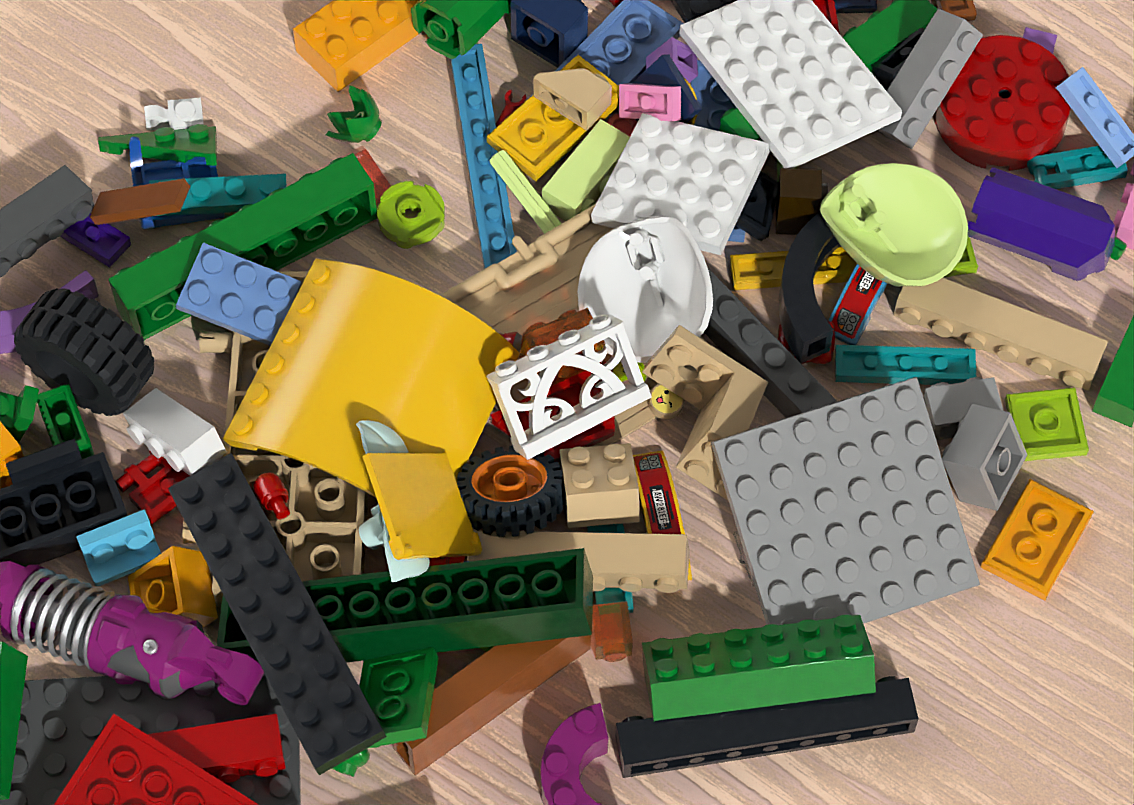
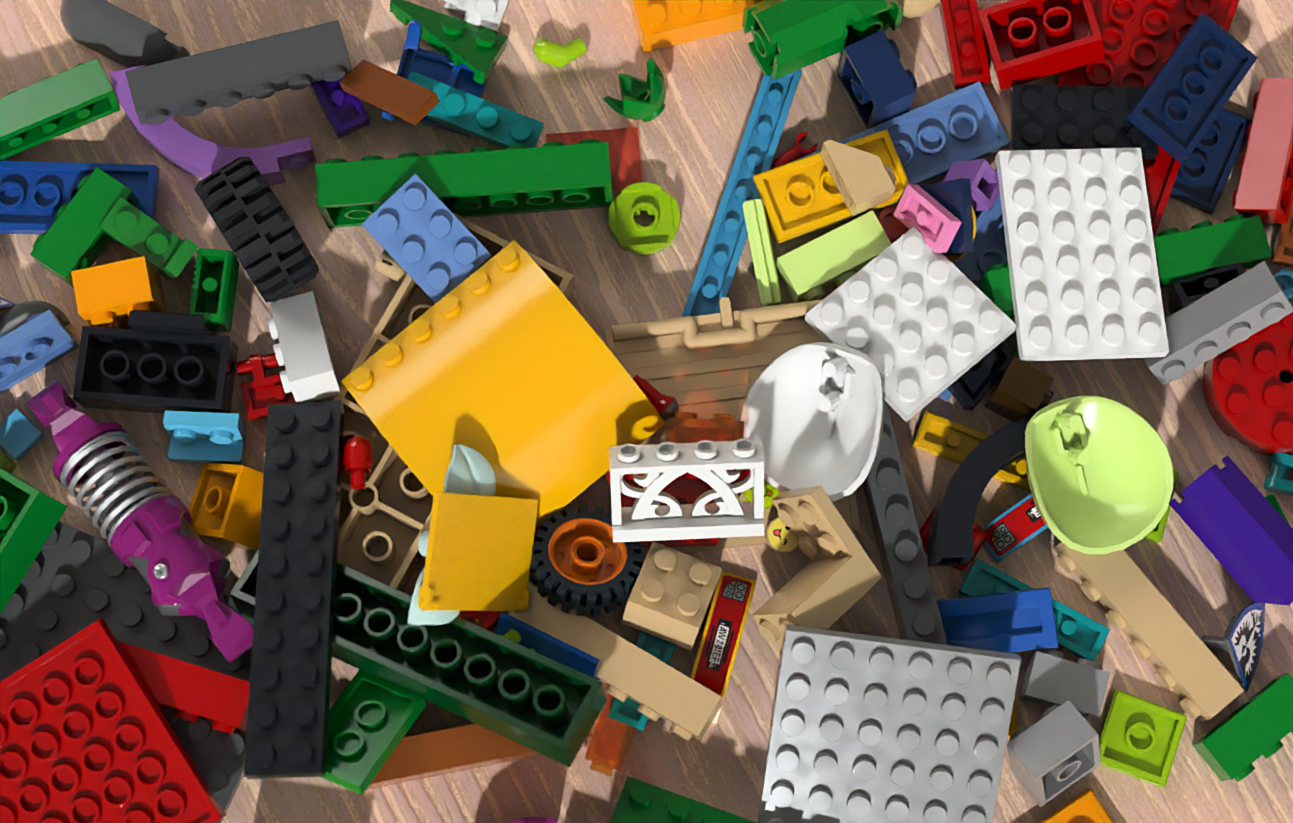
camera: 25 degrees right, 15 degrees up
(265, 121) = (557, 54): none -> lime arm
(891, 365) = (1001, 621): none -> blue piece
(1085, 306) = (1242, 641): none -> shield

